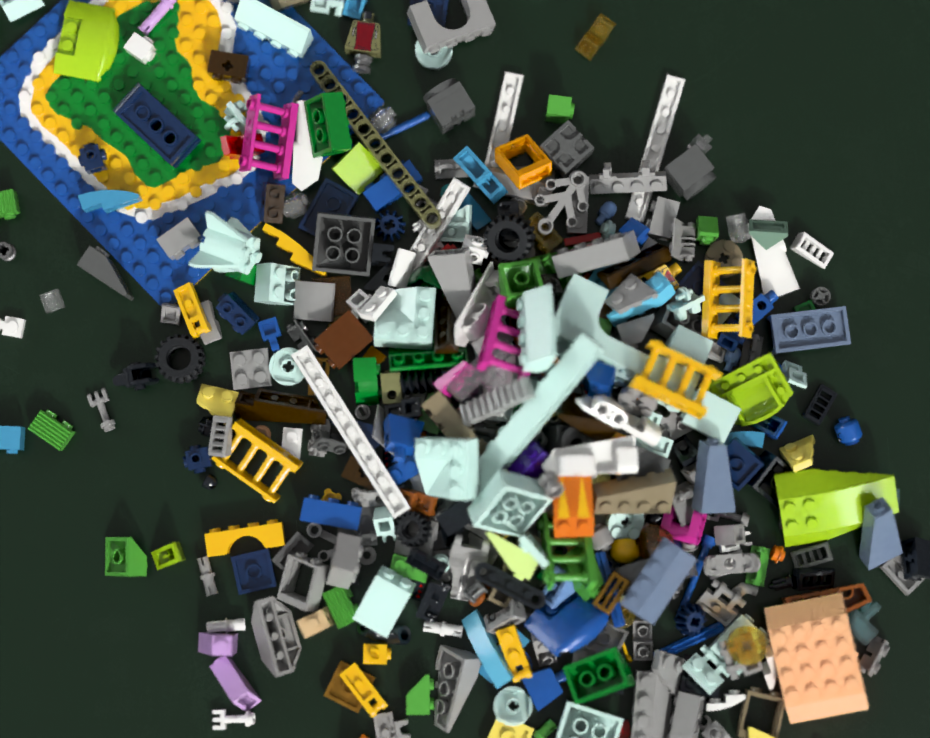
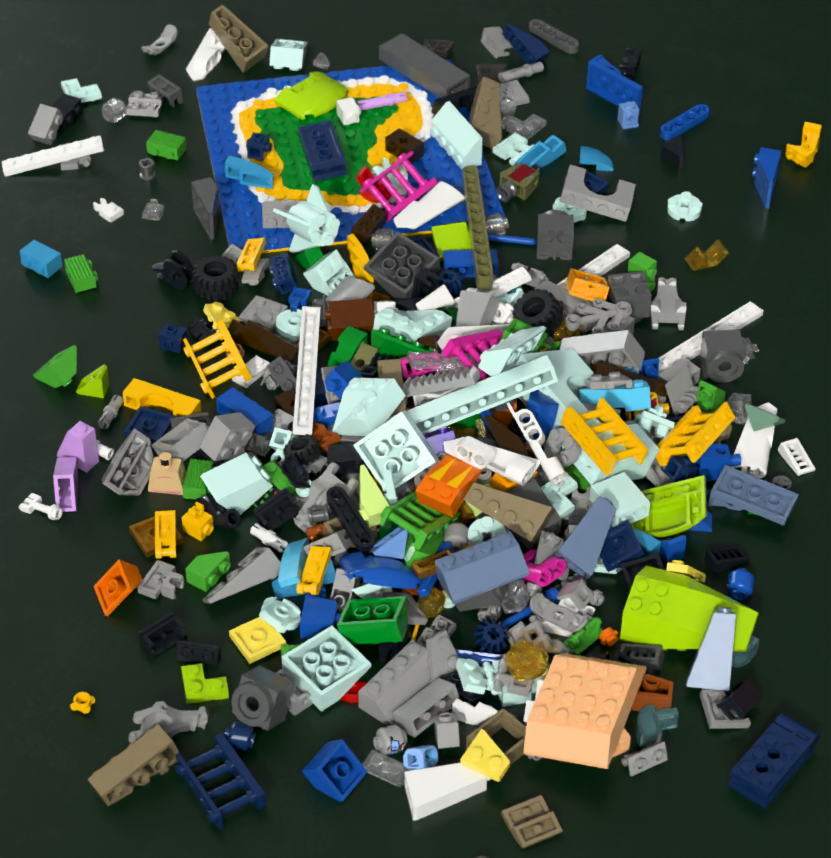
camera: 35 degrees right, 40 degrees down
(107, 424) = (125, 290): light grey hinge -> none
(210, 482) = (167, 358): black hinge -> none
(227, 442) = (202, 327): light grey slope -> none
(328, 124) = (451, 193): green slope -> none
(377, 303) = (403, 304): white plate -> none
(480, 174) = (546, 276): dark azure slope -> none
(550, 484) = (441, 453): light grey wheel -> none
(598, 127) = (667, 305): none -> light grey animal
(628, 182) = (678, 342): light grey hinge -> none
(794, 374) = (717, 516): light aqua slope -> none

